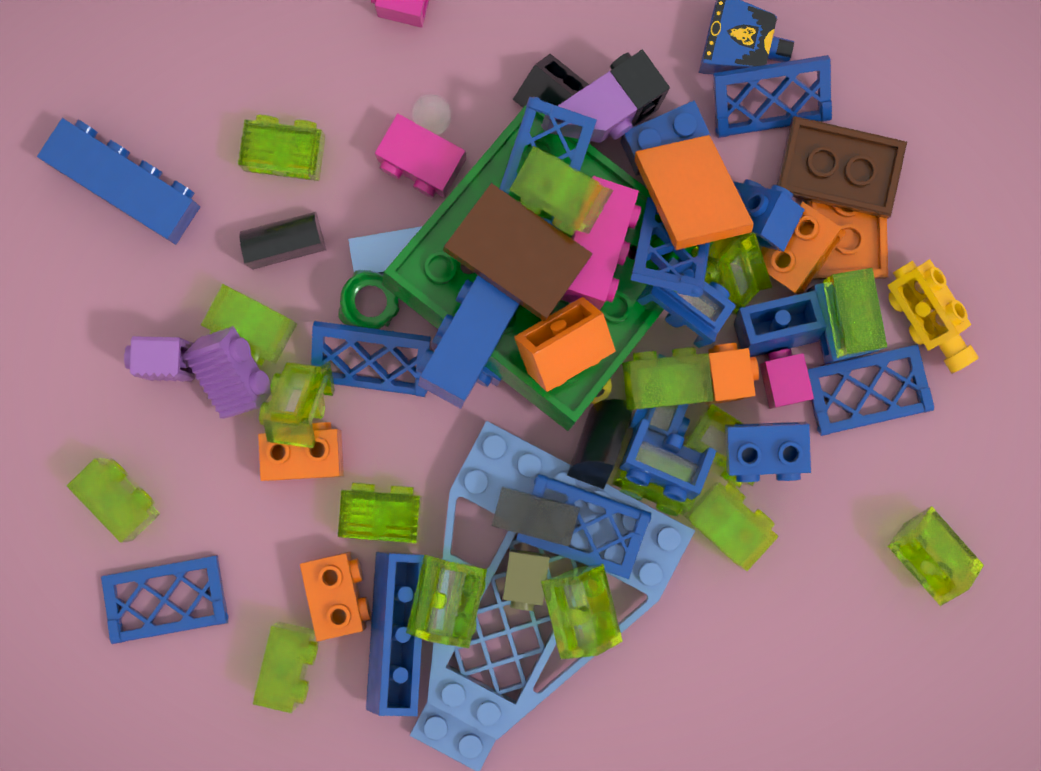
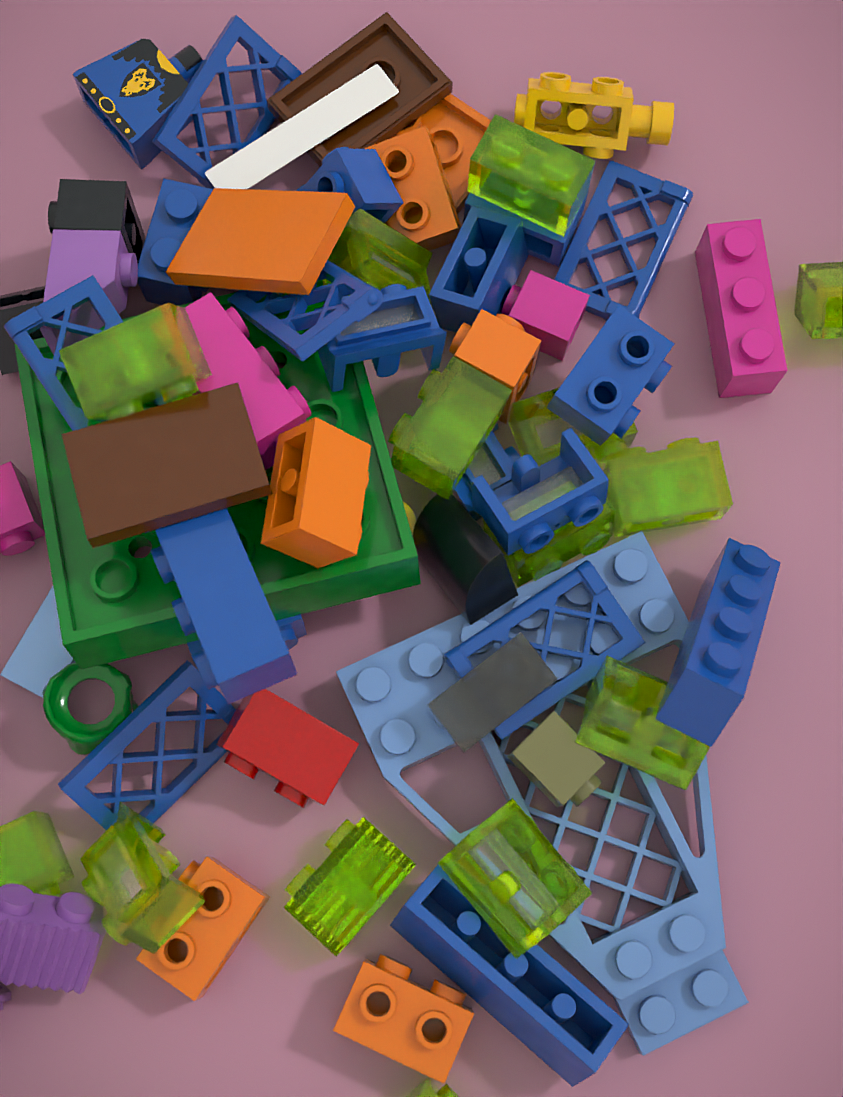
camera: 55 degrees left, 10 degrees down
(426, 428) = (287, 746): none -> red brick
(657, 620) = (720, 643): none -> blue brick
(789, 154) = (303, 131): none -> white sticker
(877, 490) = (740, 308): none -> dark pink brick

